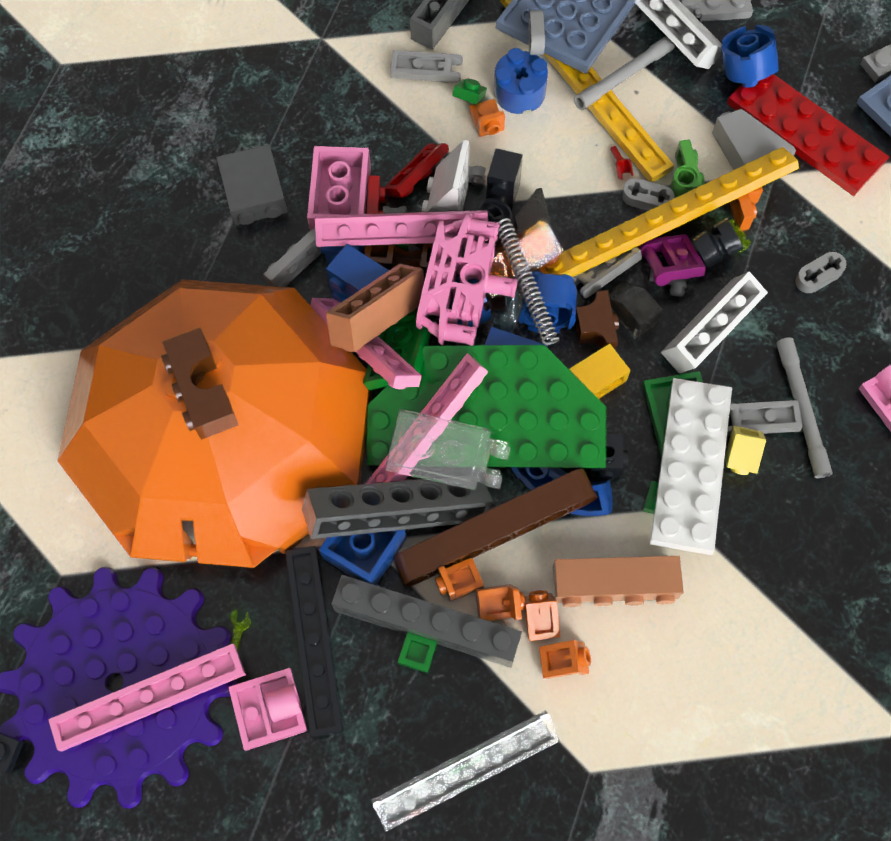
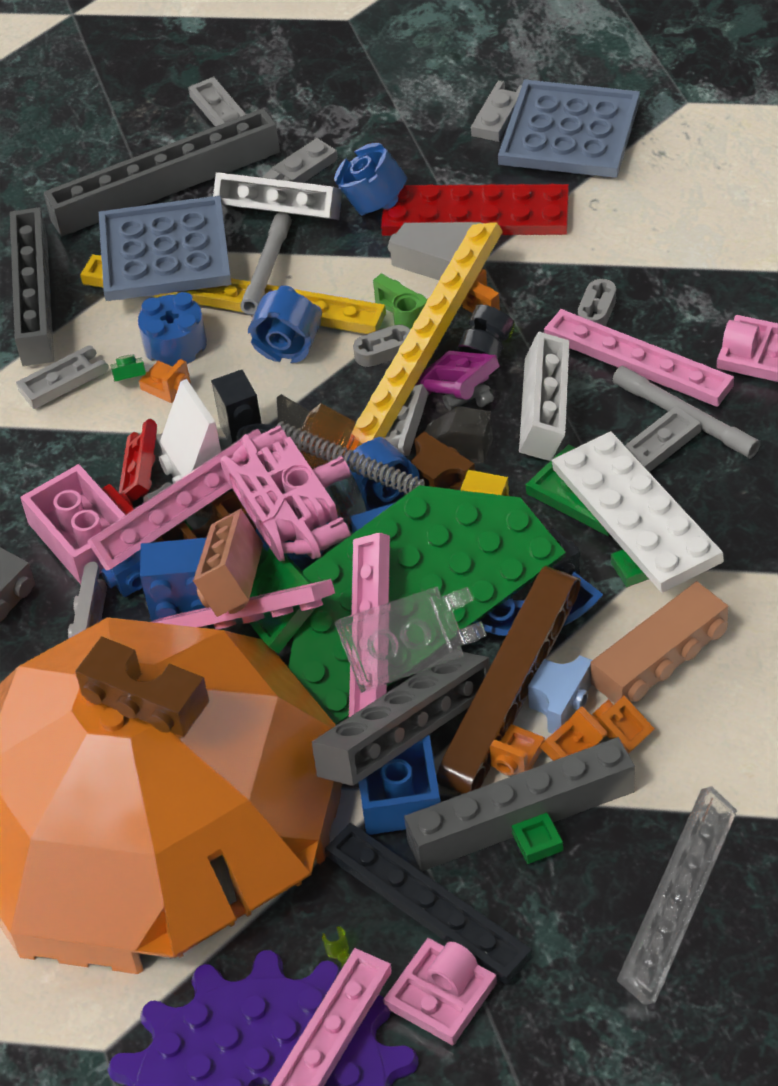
camera: 35 degrees left, 20 degrees down
(525, 559) = (560, 690): none -> light blue brick
(536, 32) = (156, 272): light grey beam -> none
(564, 659) = (675, 742): orange bracket -> none
(591, 134) = (284, 325): none -> blue brick
(622, 165) = (337, 336): red hand -> none
(745, 450) = (671, 470): light yellow brick -> none
(810, 339) = (641, 357): none -> bright pink plate

